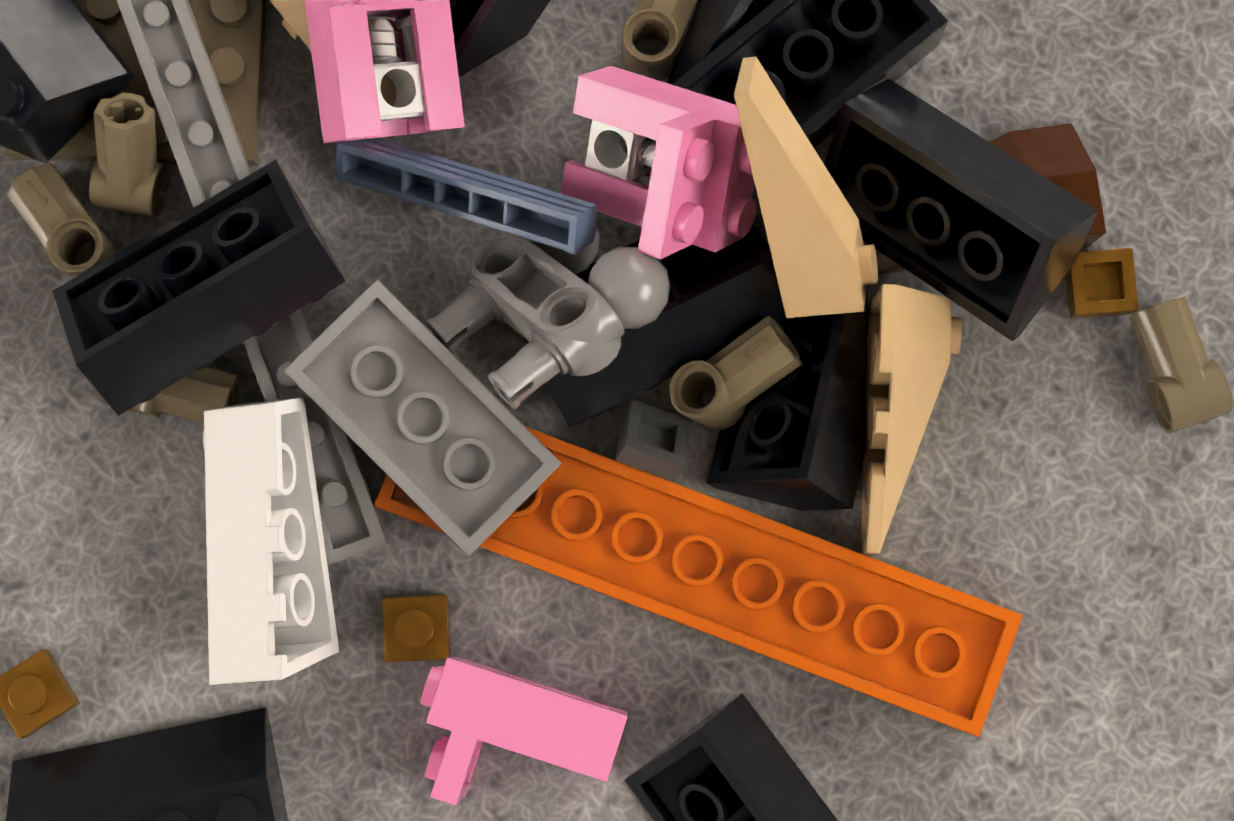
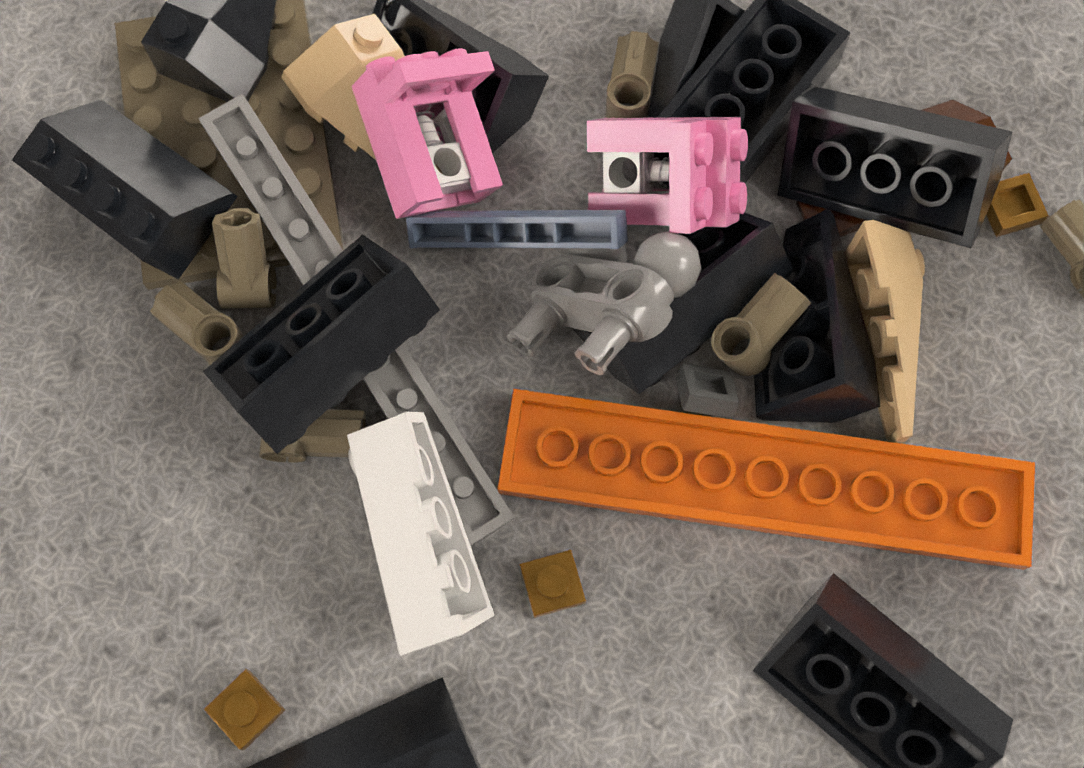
camera: 15 degrees left, 10 degrees down
(422, 417) = (524, 407): light grey plate -> none
(515, 715) = (662, 629): bright pink brick -> none
(805, 215) = (798, 192): tan wedge -> none

